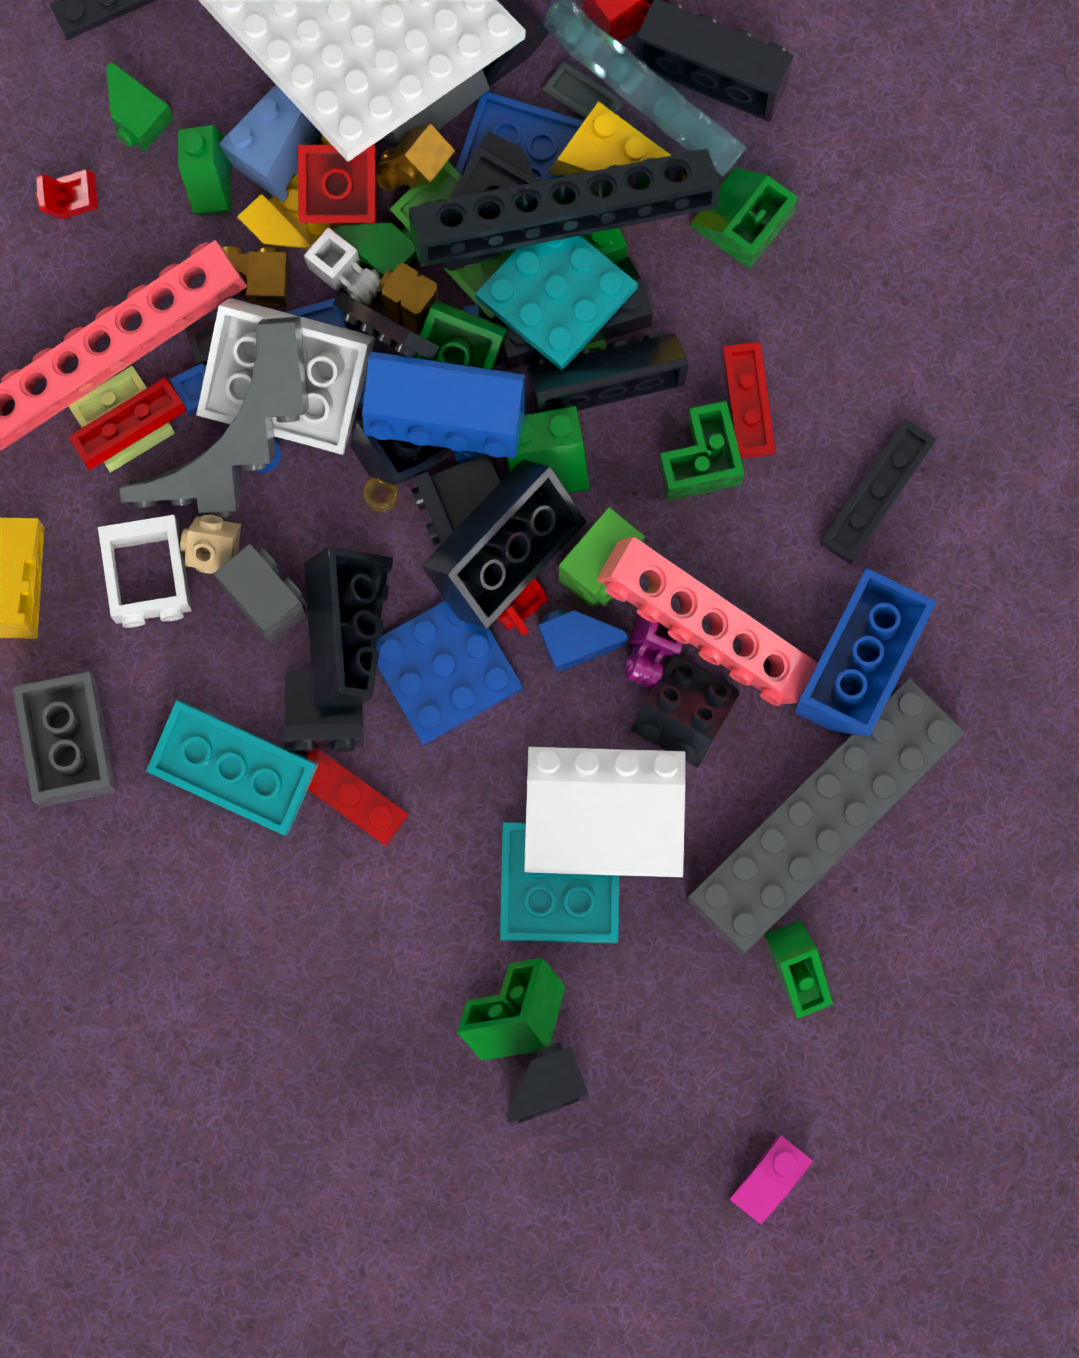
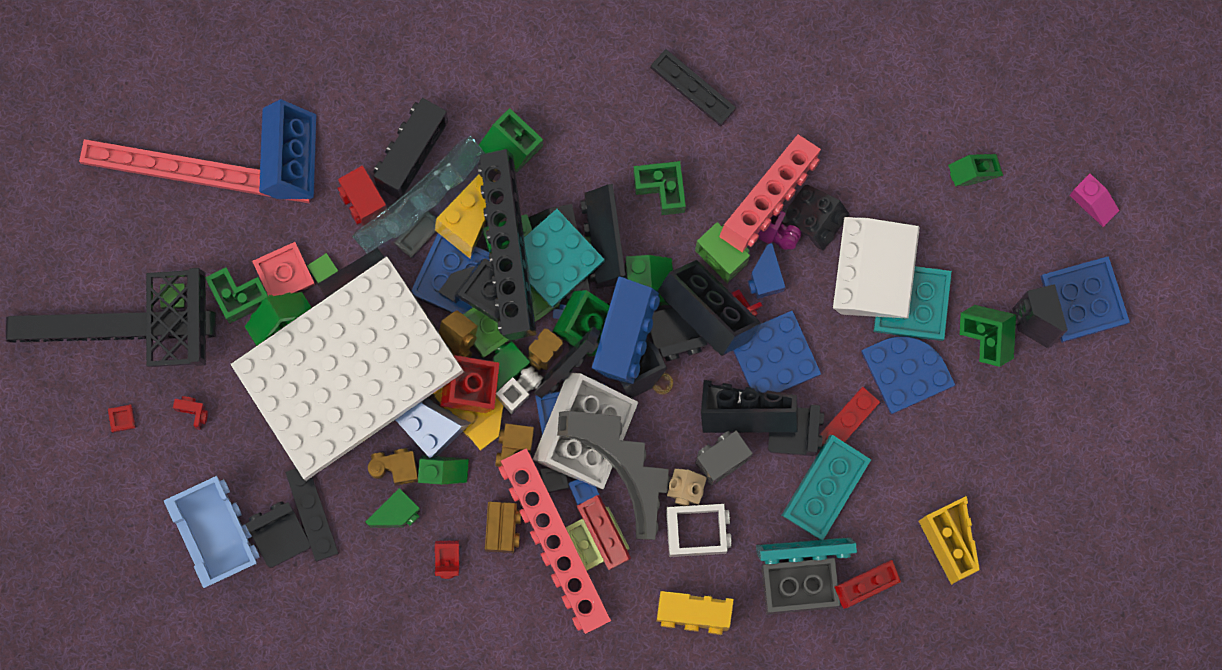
camera: 90 degrees left, 0 degrees up
(76, 847) = (867, 584): none -> red tile
(120, 267) = (501, 527): none -> pearl gold brick
(124, 741) = (797, 550): none -> teal plate
(163, 981) = (952, 540): none -> yellow wedge
(206, 103) = (400, 463): none -> pearl gold brick
(441, 885) = (906, 371): none -> blue plate
(596, 1175) = (1088, 298): none -> blue plate
(748, 399) = (626, 155): red plate -> none
(824, 818) = (888, 142): dark grey brick -> none
(865, 656) = (797, 105): blue slope -> none

